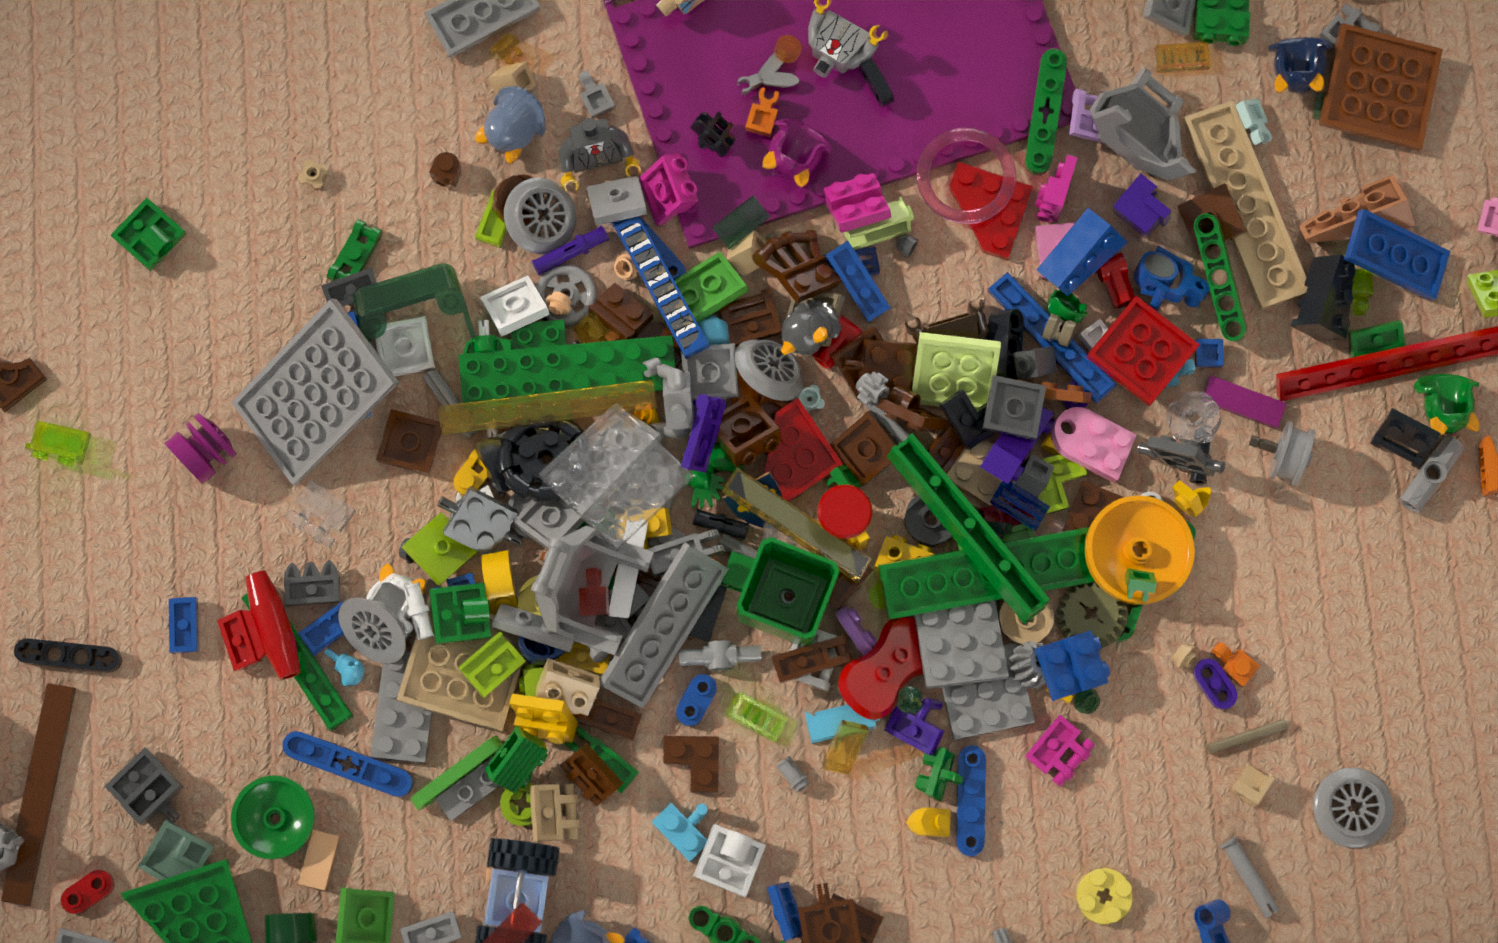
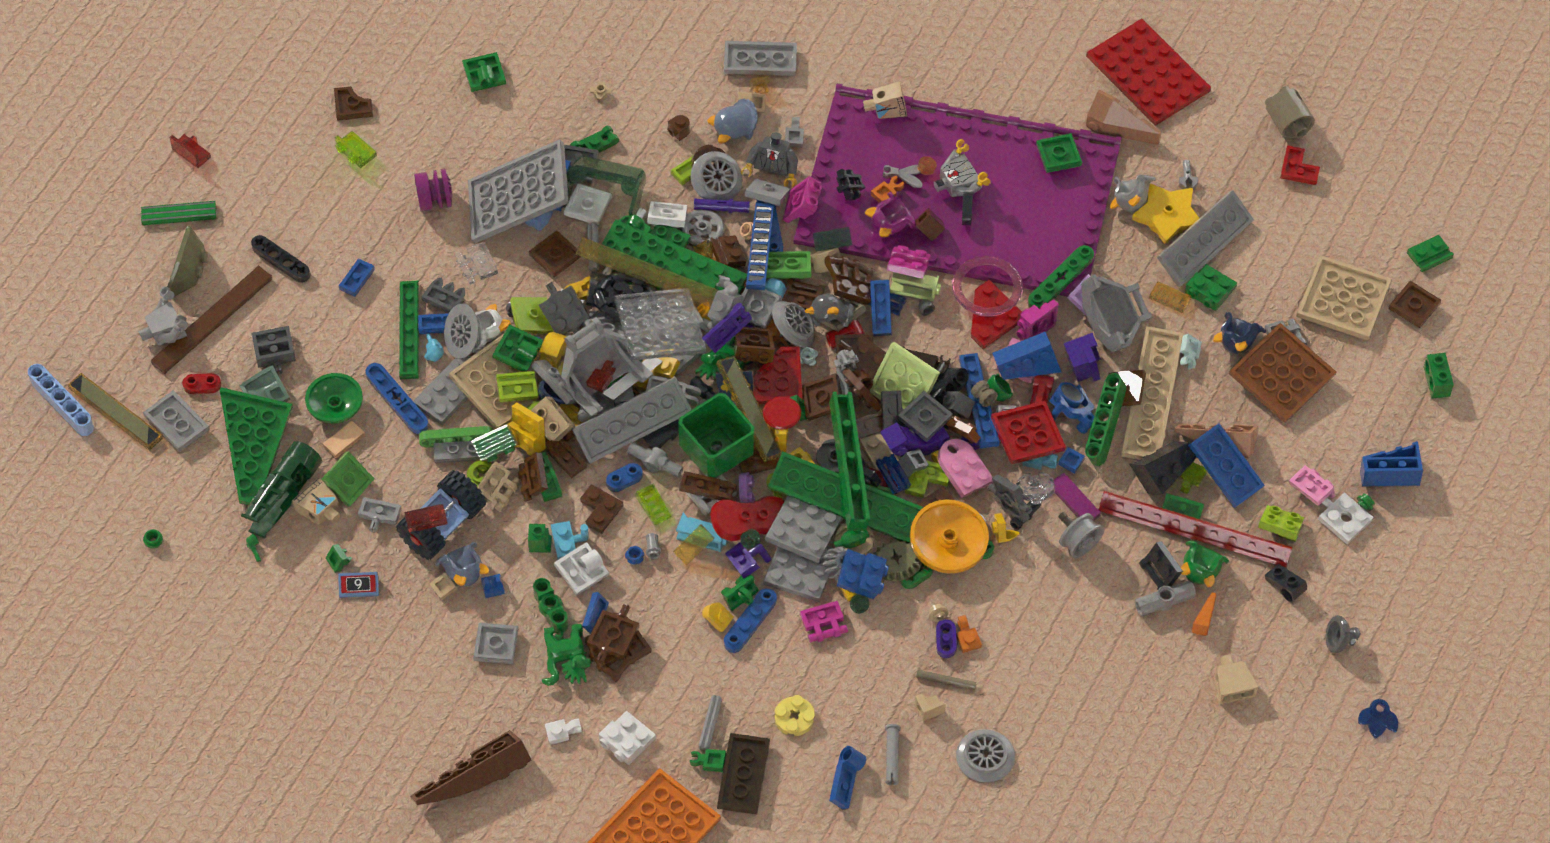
camera: 30 degrees right, 20 degrees down
(261, 630) = (398, 301): red plate -> none
(418, 611) = (494, 333): white pin -> none
(558, 303) = (693, 226): light nougat plate -> none
(652, 851) = (539, 538): none -> green window
(784, 794) = (634, 550): none -> blue plate
(845, 131) = (930, 224): none -> reddish brown panel
(1026, 630) = (852, 539): none -> green plant
(1140, 581) = (935, 547): green tile -> none

